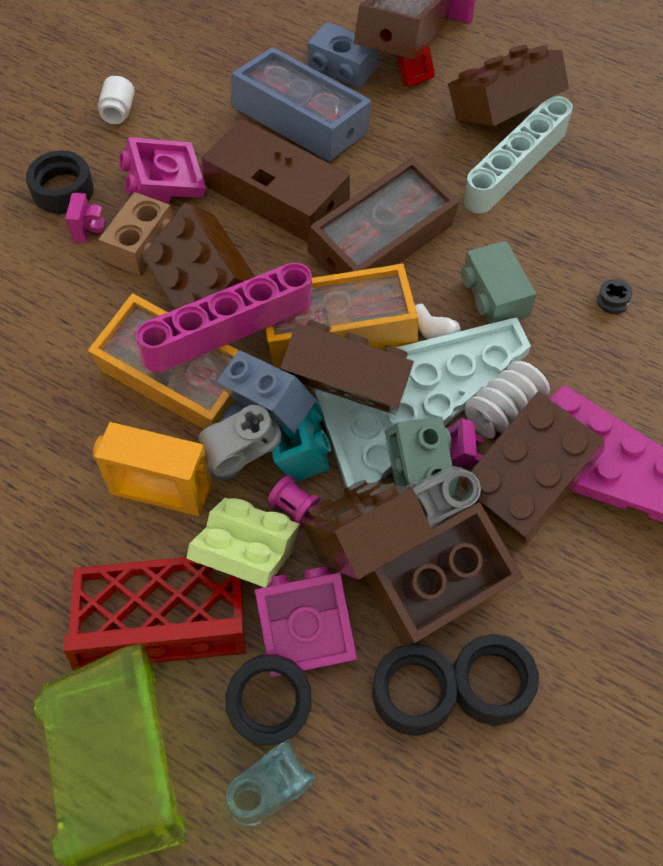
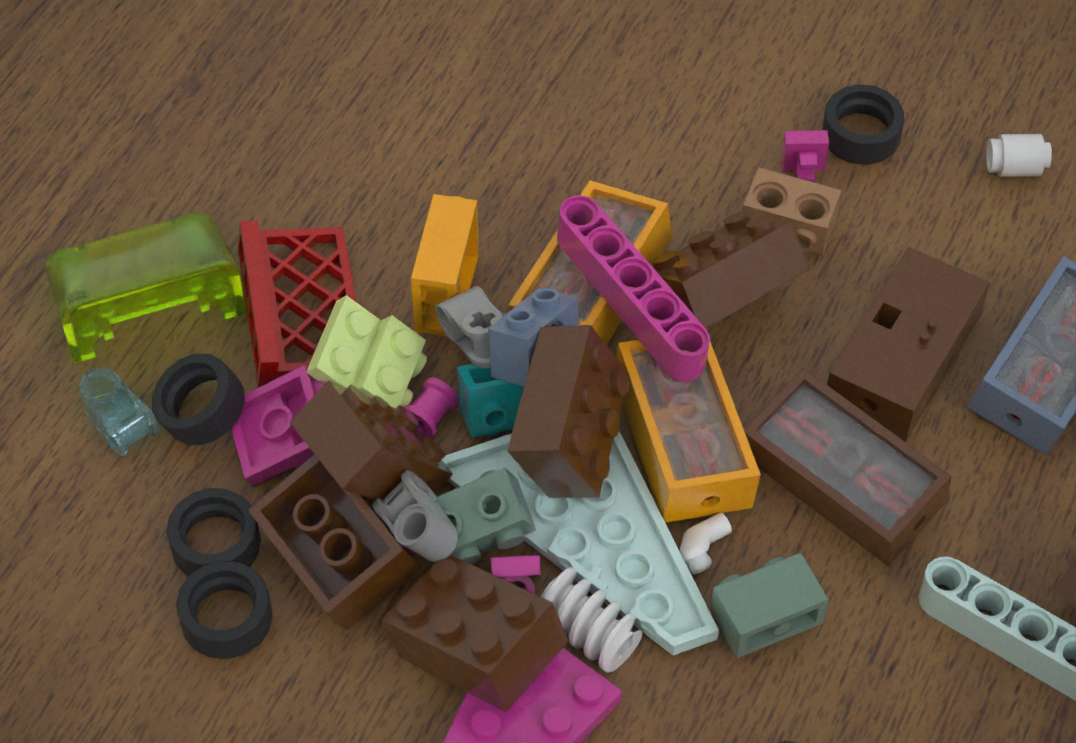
camera: 85 degrees right, 5 degrees down
(161, 169) = (897, 216): dark pink plate -> none

